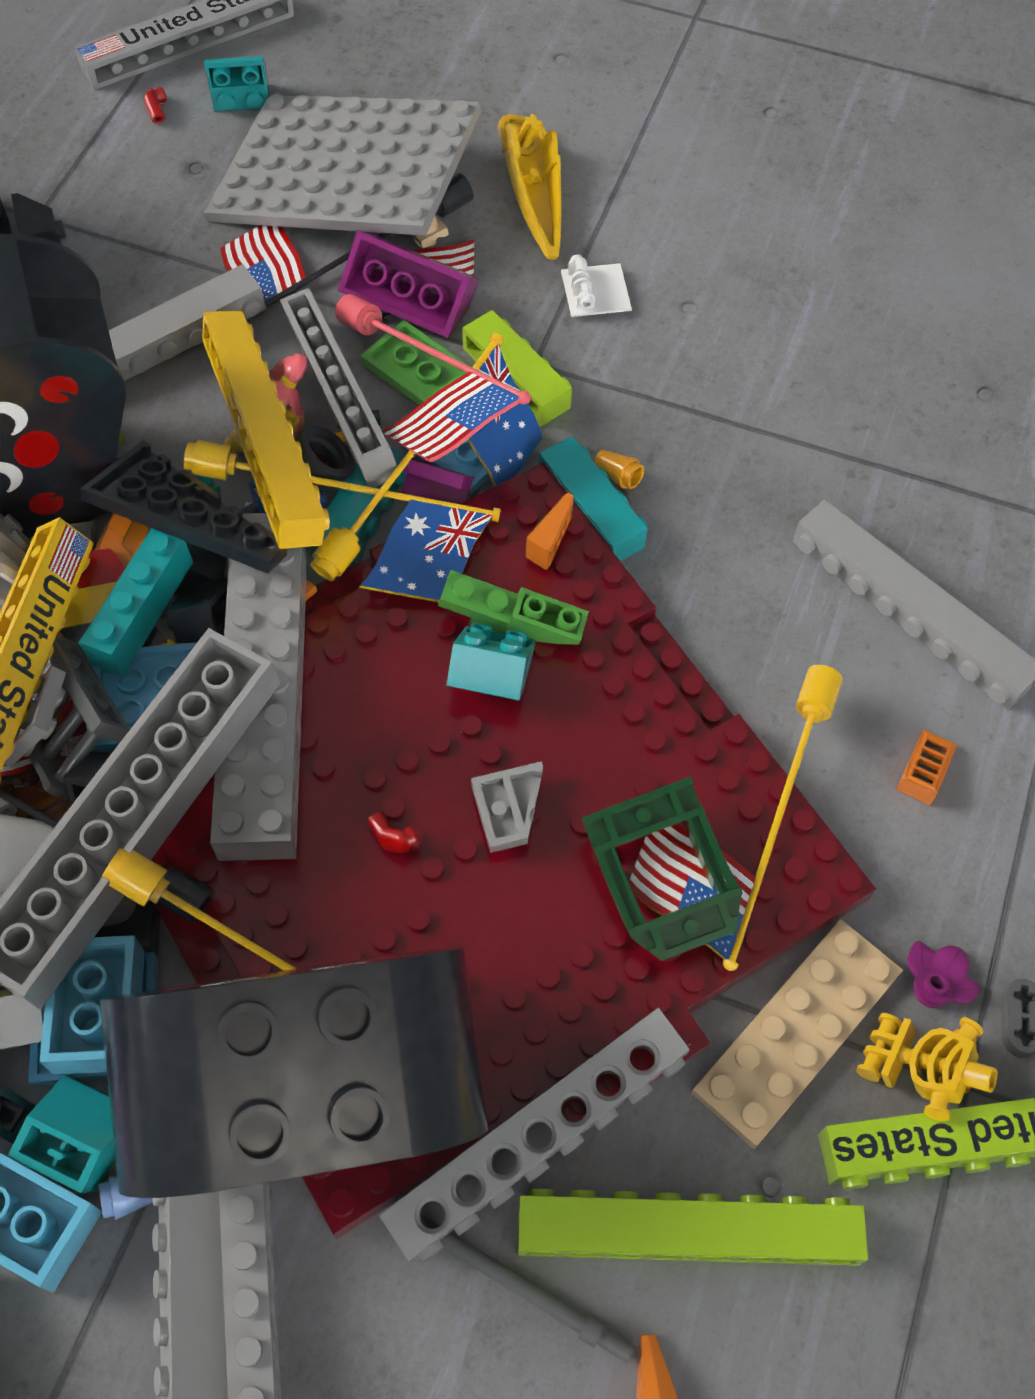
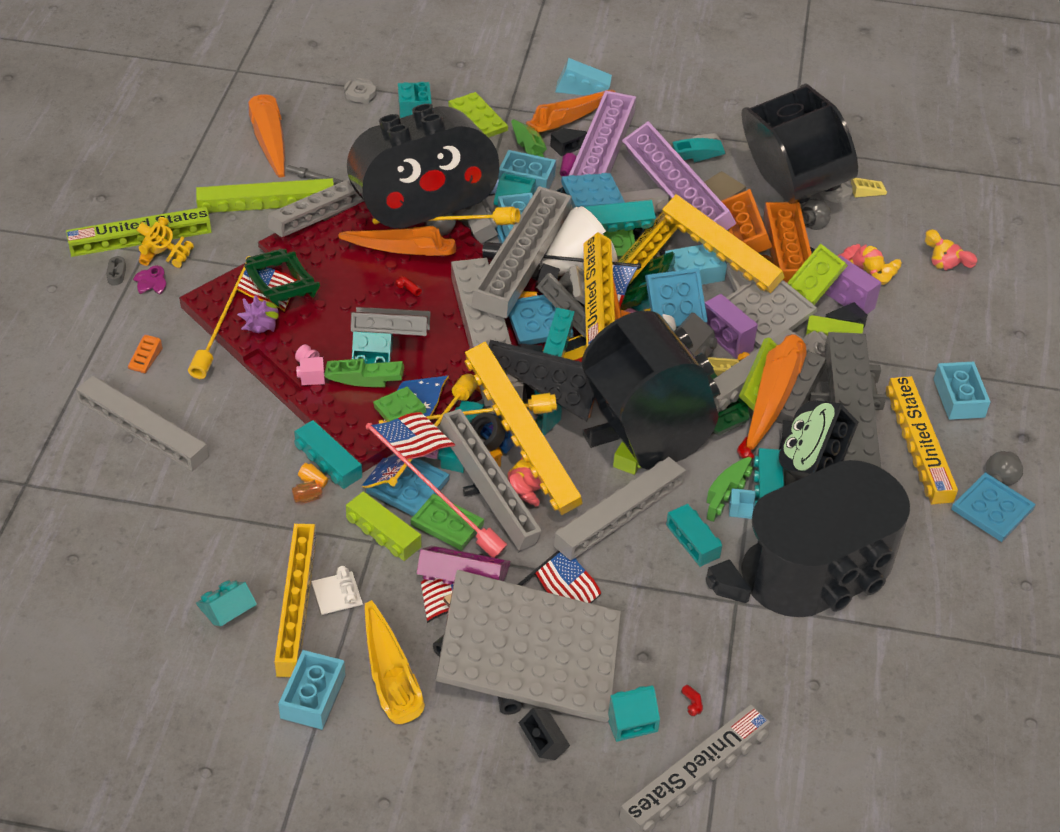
camera: 170 degrees right, 15 degrees down
(321, 930) = (406, 241): none -> orange piece
(355, 72) = (544, 734): none -> black brick
(459, 527) = (399, 404): none -> bright green plate
(470, 670) = (390, 321): none -> fence
(507, 804) = (355, 296): light grey wing -> none
(547, 535) = (350, 410): orange slope -> none
(611, 627) = (311, 371): none -> bright pink brick
(617, 664) = (306, 352): none -> bright pink wheel
(631, 439) = (306, 492): none -> clear orange brick
(638, 155) = (312, 689): none -> medium azure brick
(654, 272) = (295, 599): none -> yellow brick
(709, 759) = (259, 315): none -> medium lavender hair
(755, 286) = (226, 602): none -> teal slope
(796, 1033) = (217, 257): tan plate -> none

